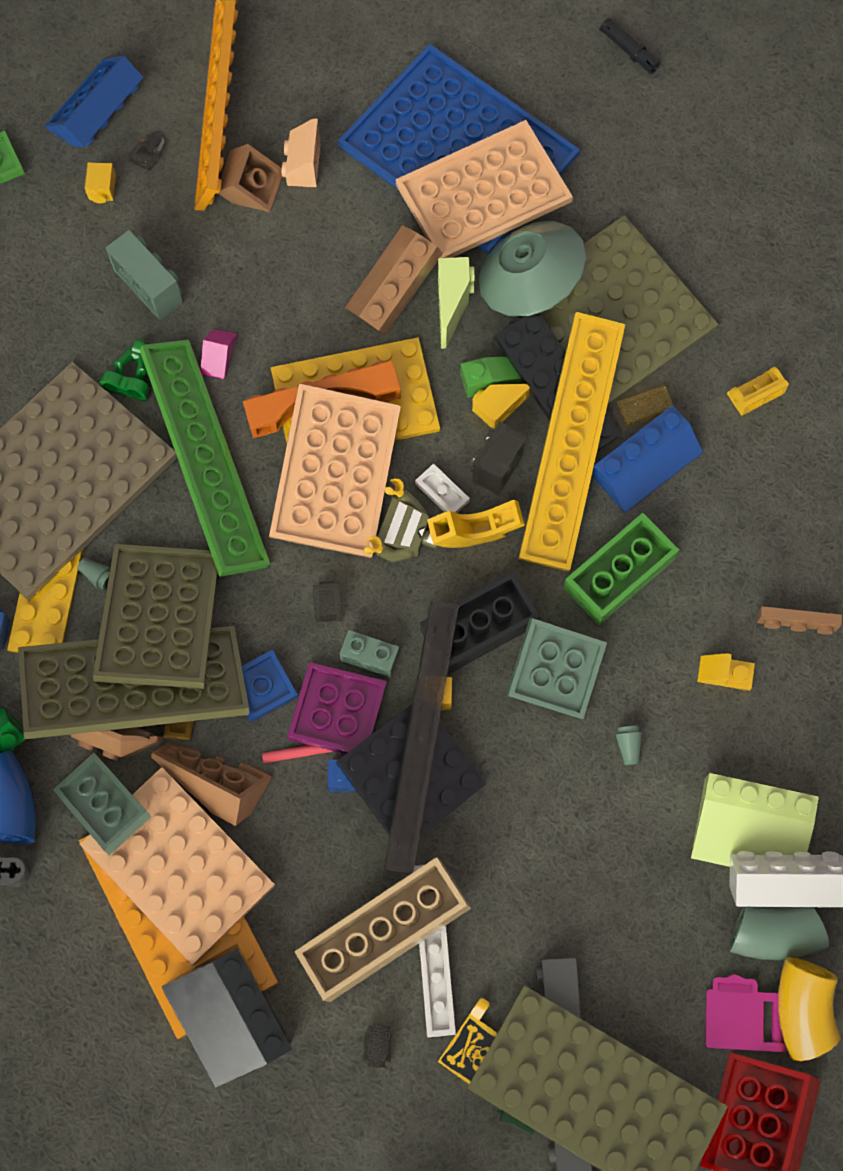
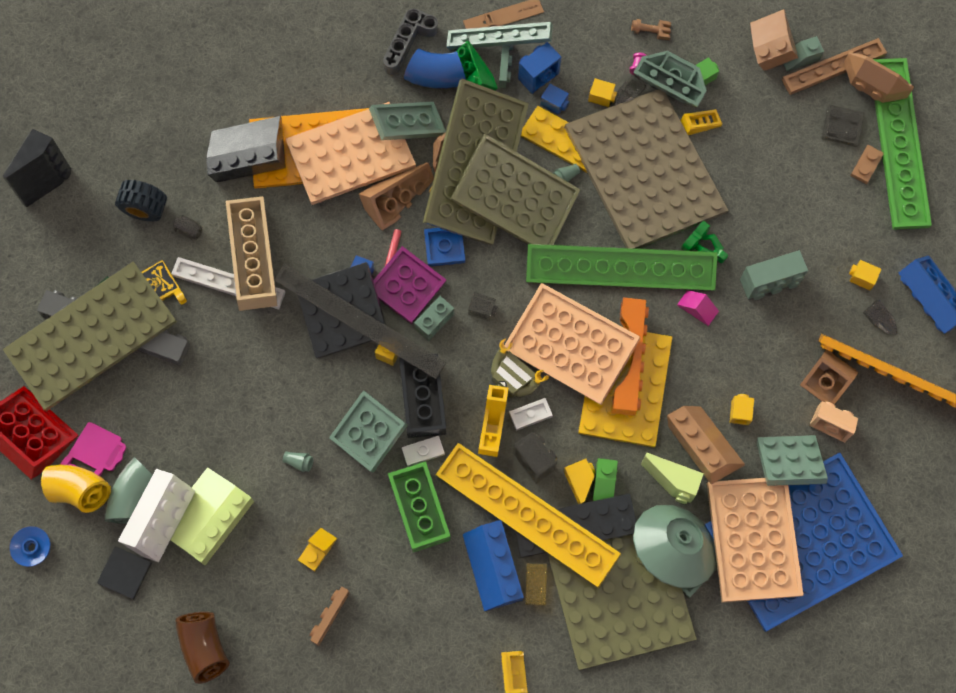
camera: 110 degrees right, 0 degrees up
(332, 257) = (741, 409): none -> yellow brick
(370, 1127) = (141, 200): none -> black wheel
(372, 183) = (791, 460): none -> sand green plate
(546, 599) = (423, 451): none -> white plate

